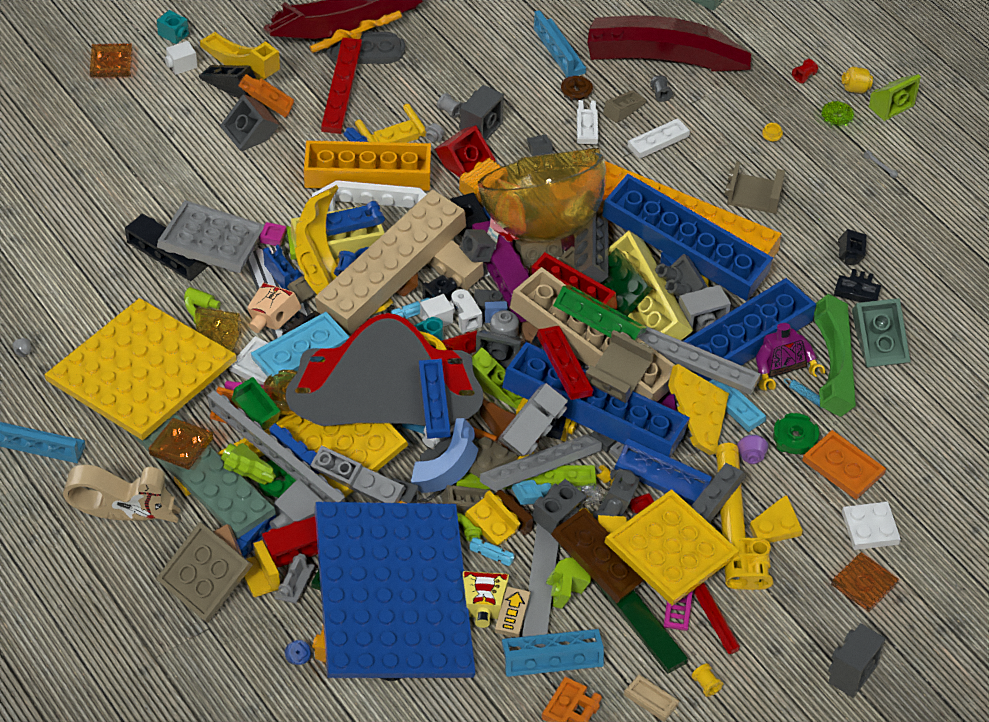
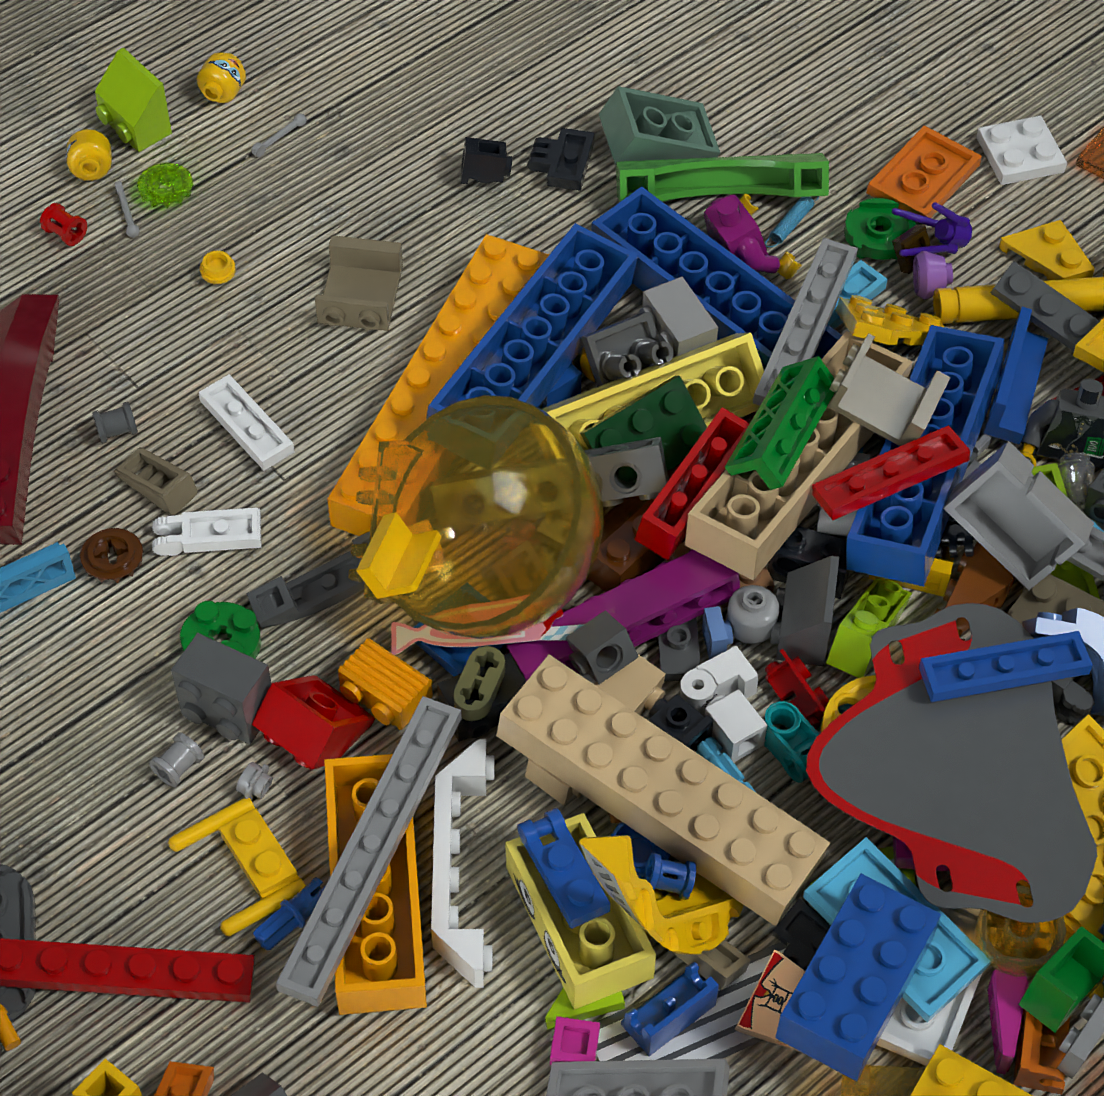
camera: 95 degrees left, 5 degrees up
(269, 313) = (857, 976): none -> blue brick
(376, 151) = (368, 852): none -> light grey plate
(470, 203) = (487, 685): none -> olive beam
(531, 125) = (224, 618): none -> green plate
(535, 159) = (396, 557): none -> yellow panel
(777, 445) = (913, 238): none -> dark brown tile
(790, 466) = (951, 231): none -> dark purple plant
(836, 96) = (132, 230): none -> light grey hinge
(920, 135) = (221, 77): none -> yellow head

